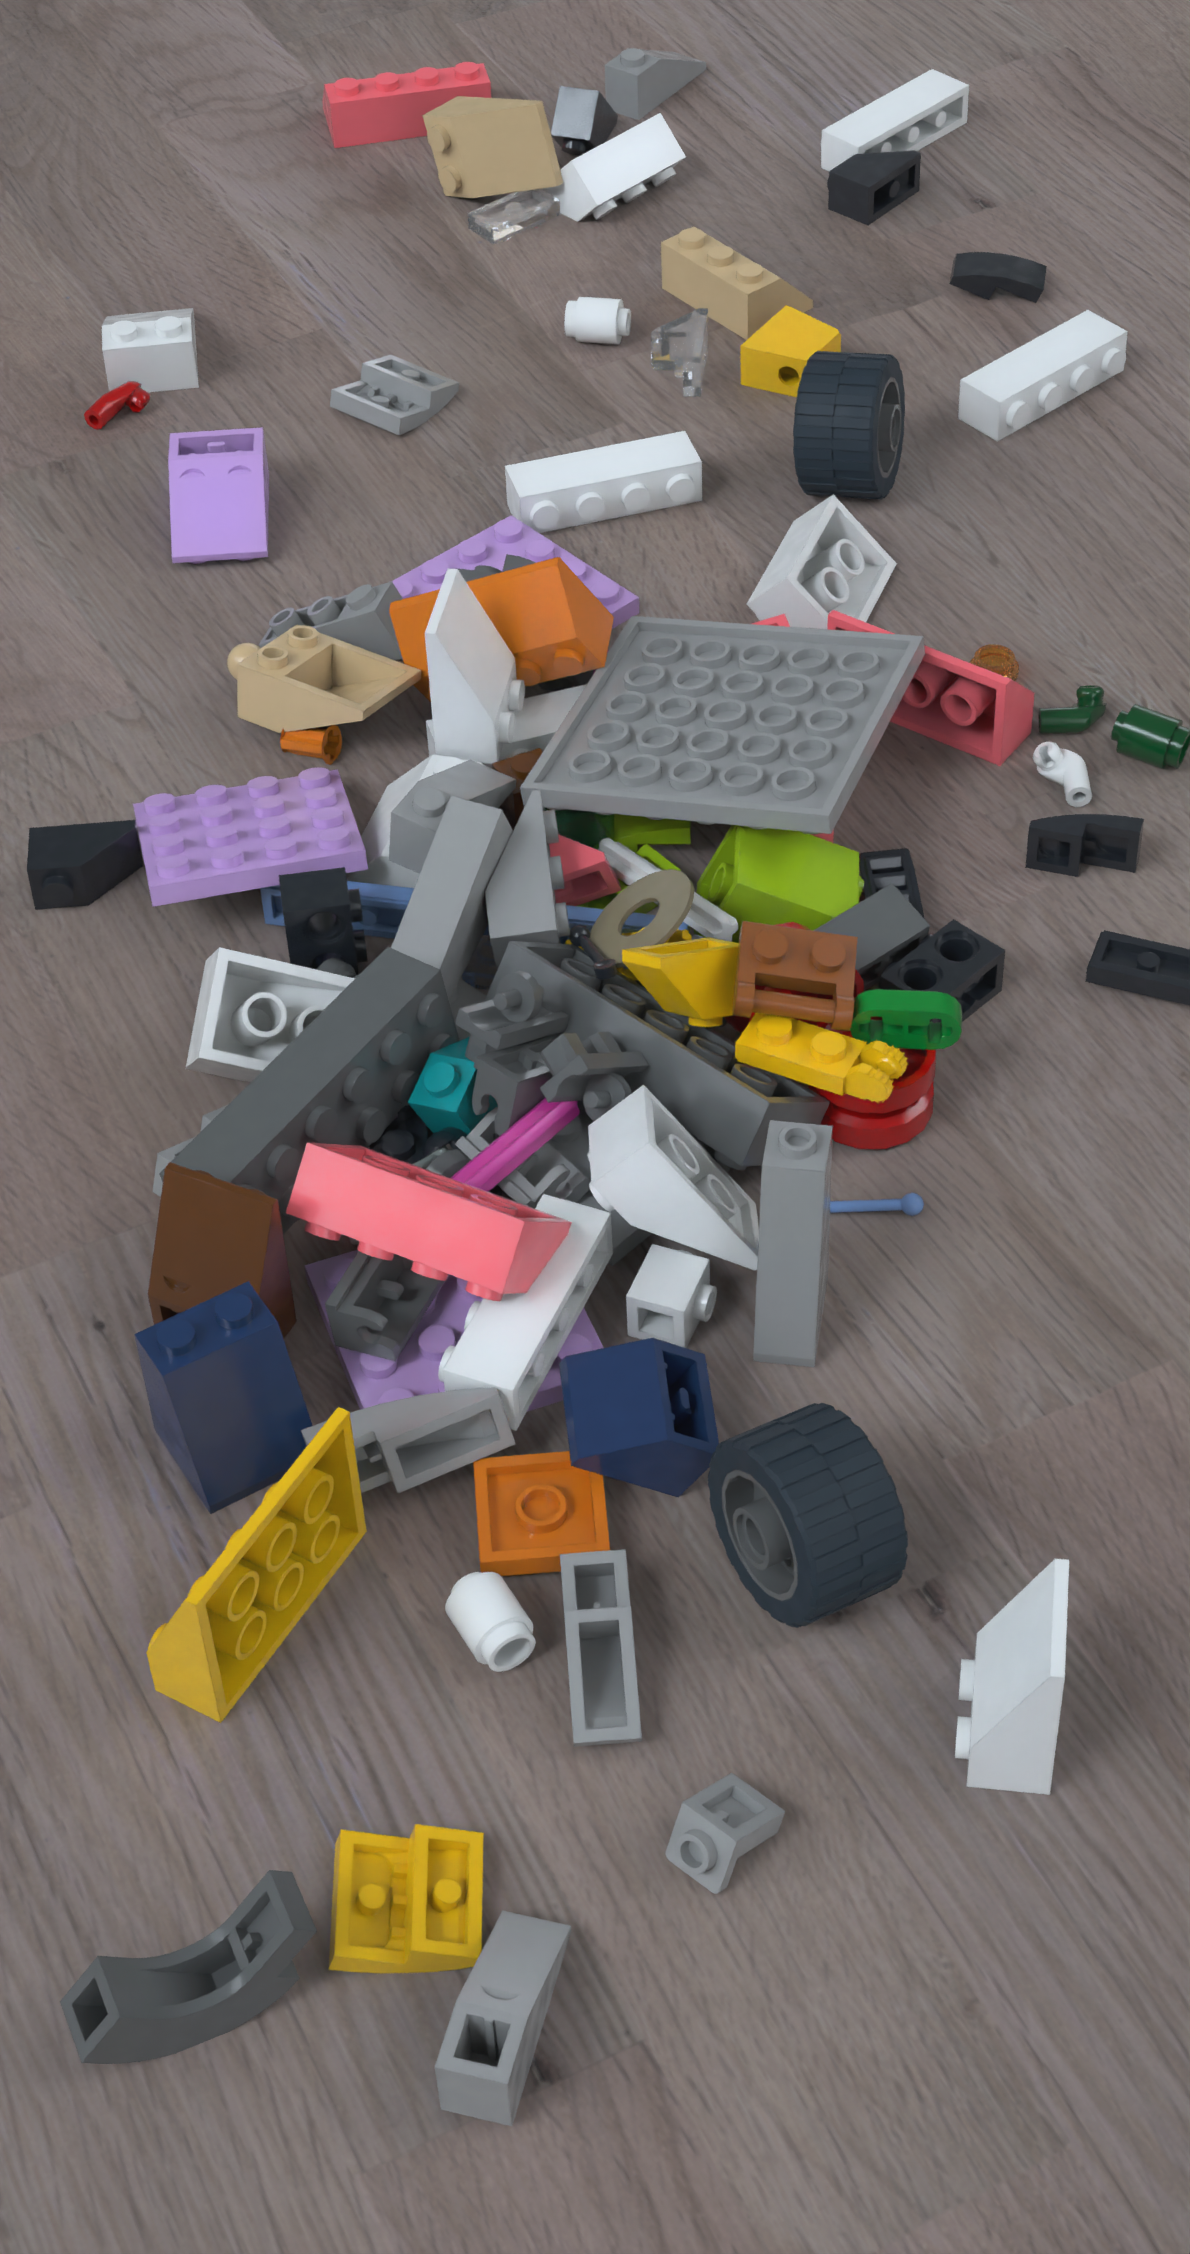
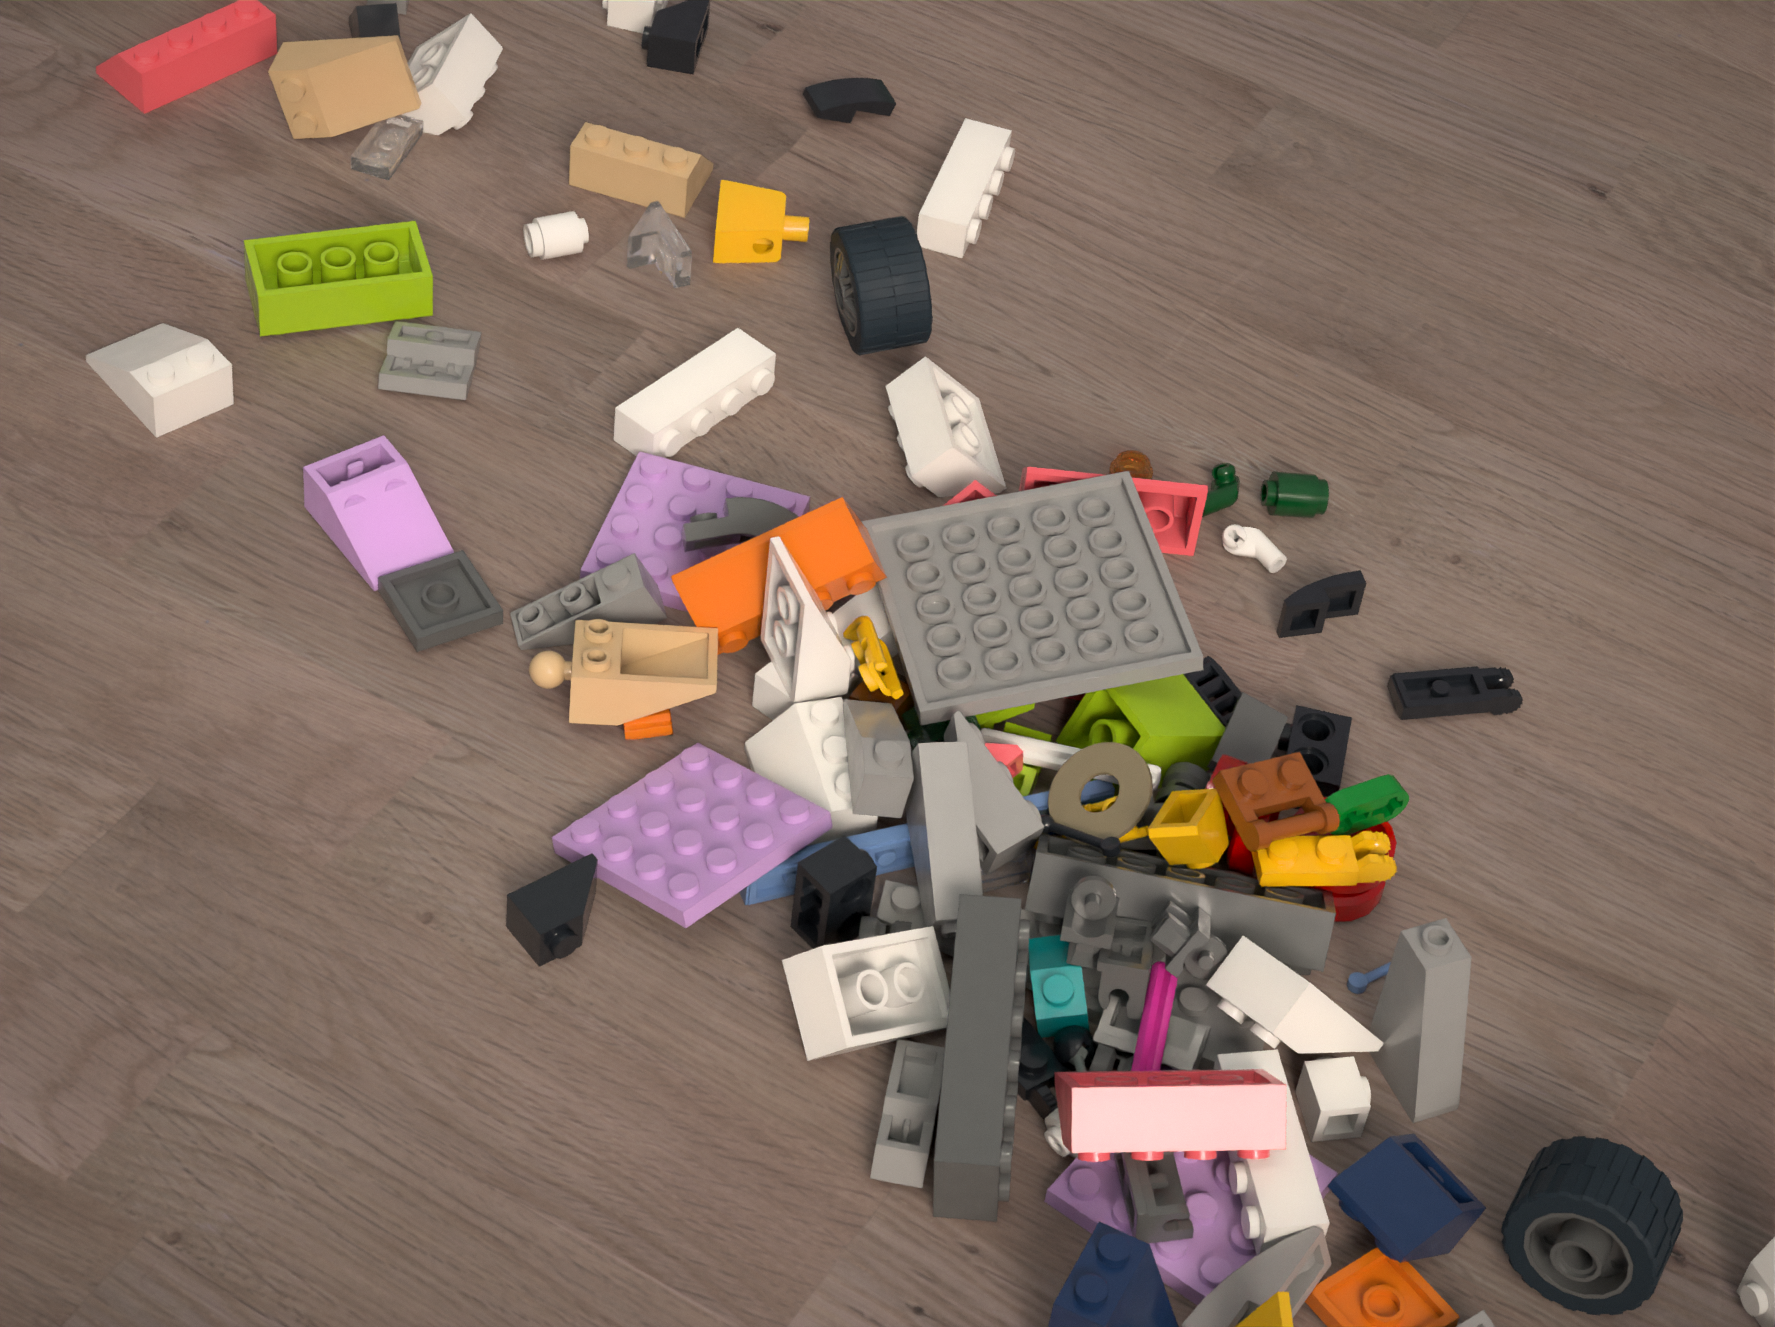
camera: 40 degrees left, 0 degrees up
(113, 401) = (175, 444): red arm -> none
(215, 1240) = (1024, 1219): reddish brown slope -> none
(216, 585) = (440, 600): none -> dark grey plate
(359, 303) = (338, 278): none -> lime brick
(526, 728) = (873, 657): none -> yellow piece

